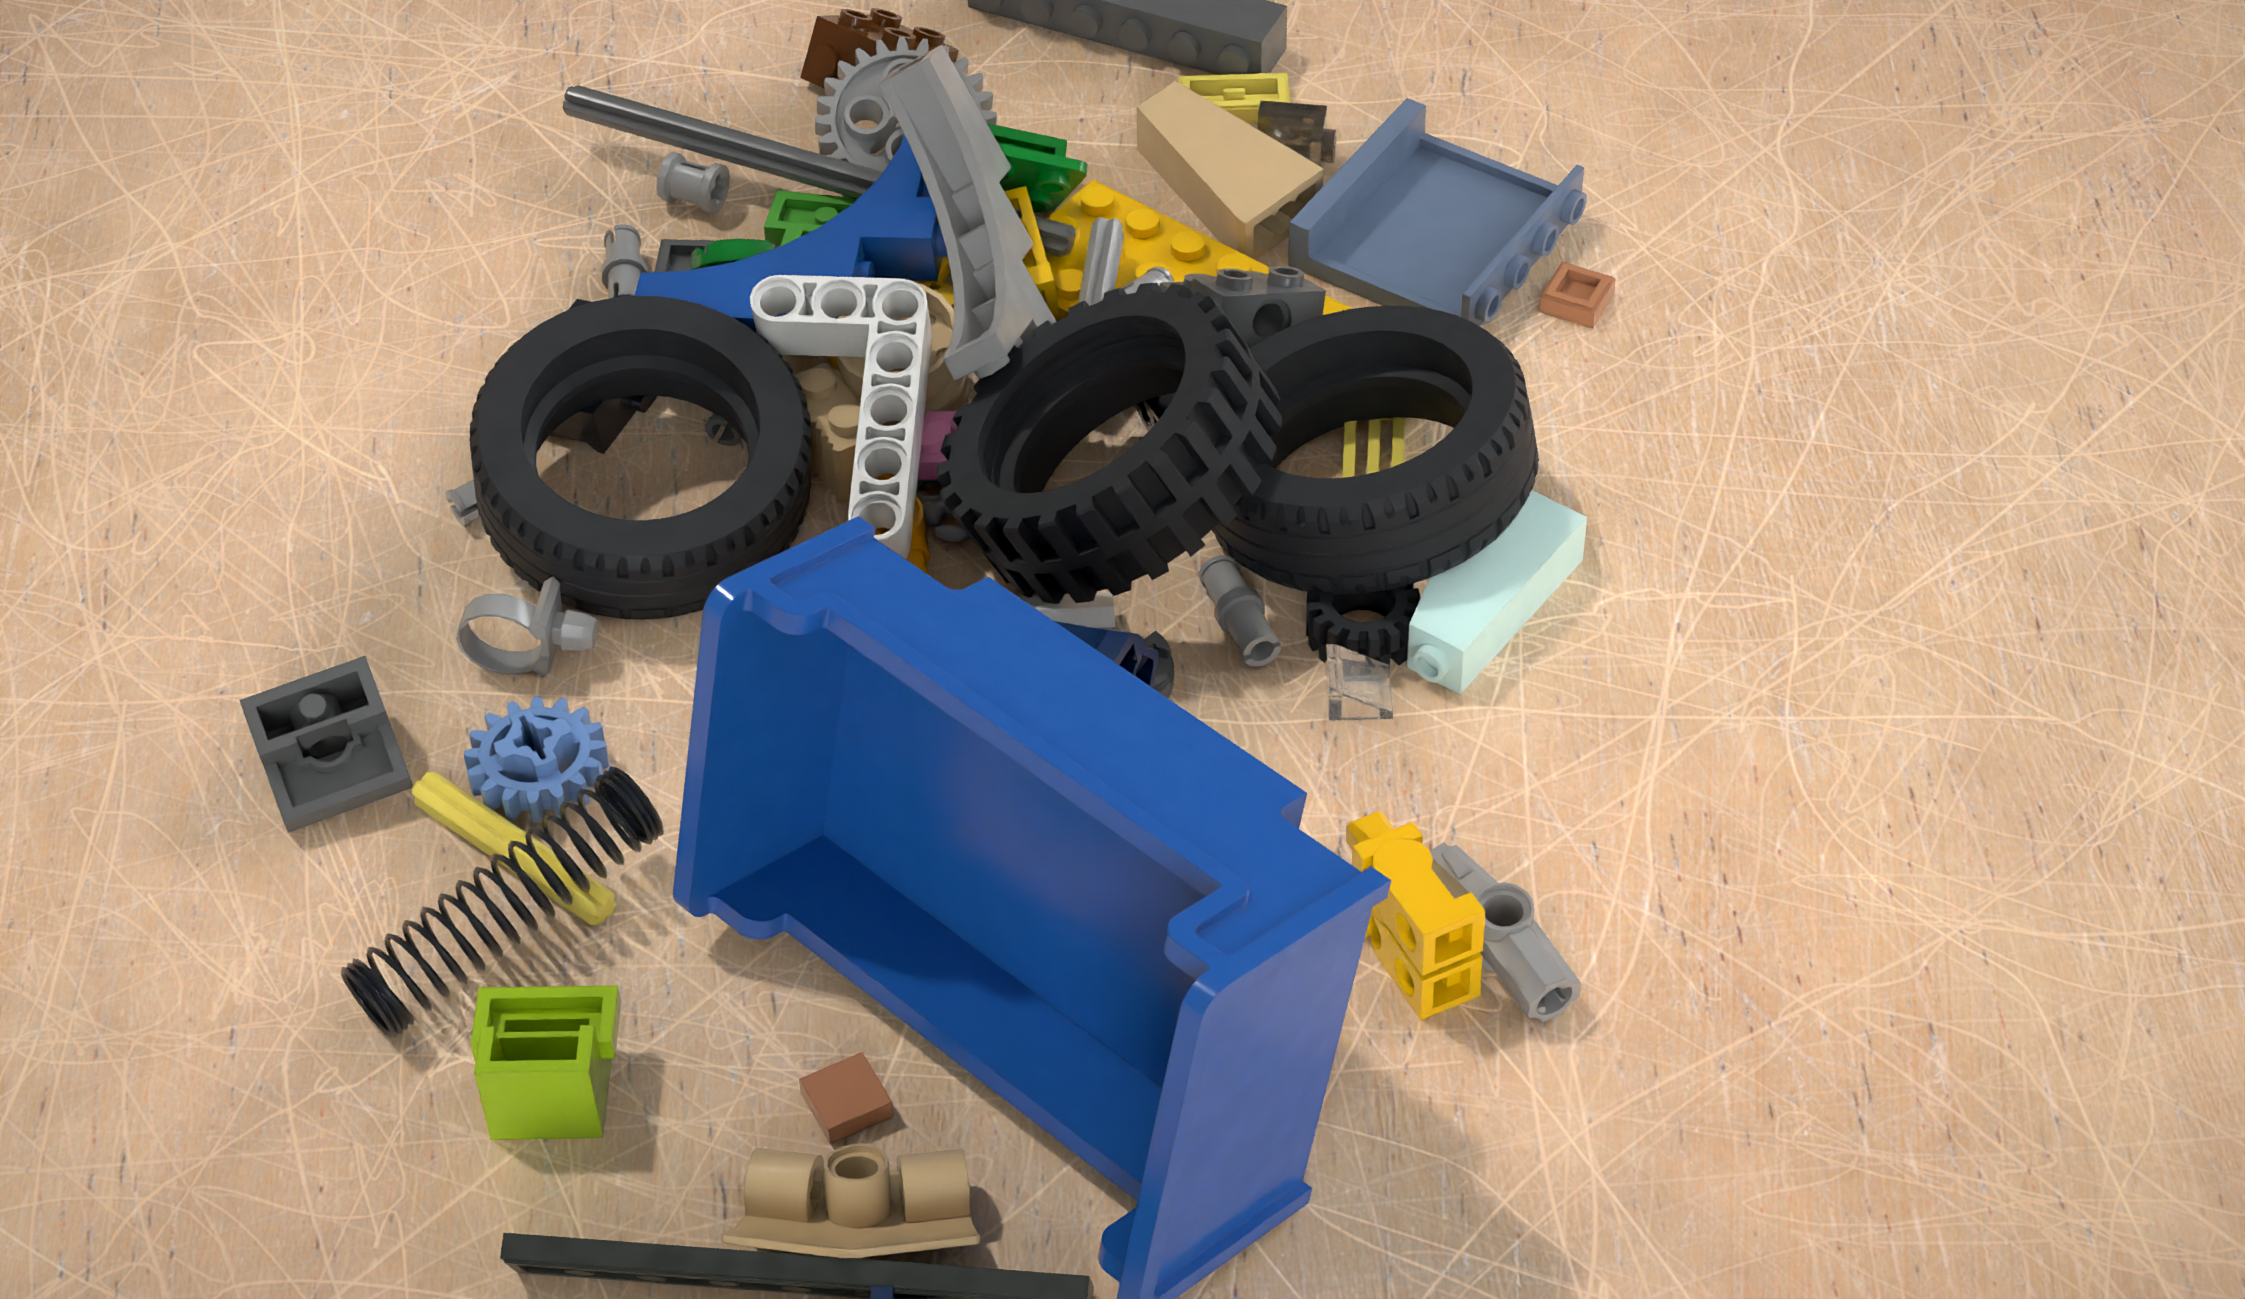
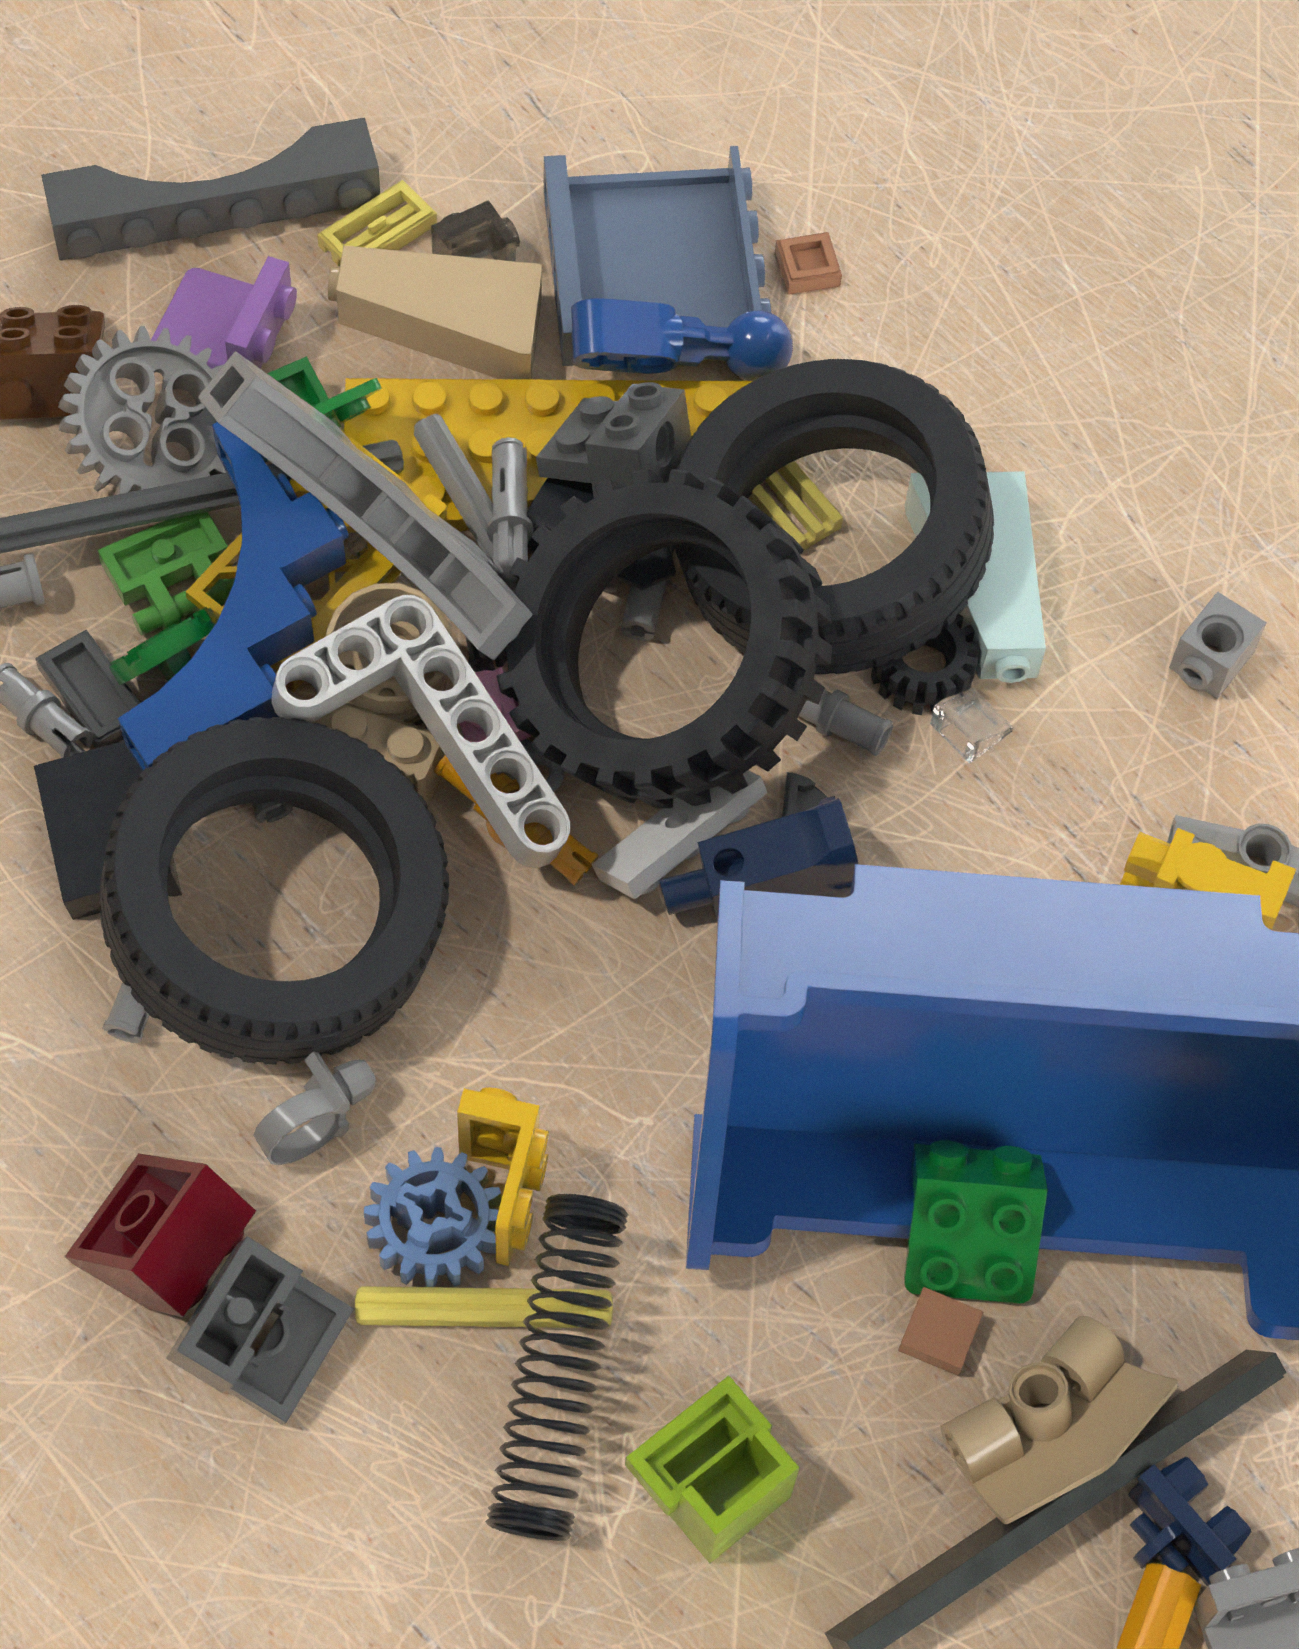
camera: 45 degrees left, 15 degrees up
(339, 636) = (162, 1233): none -> dark red slope
(624, 736) = (506, 1135): none -> yellow bracket
(944, 1021) = (975, 1221): none -> green bracket
(1051, 94) = (231, 313): none -> medium lavender bracket
(1362, 261) = (656, 340): none -> blue beam
(1640, 749) = (1221, 626): none -> light grey brick

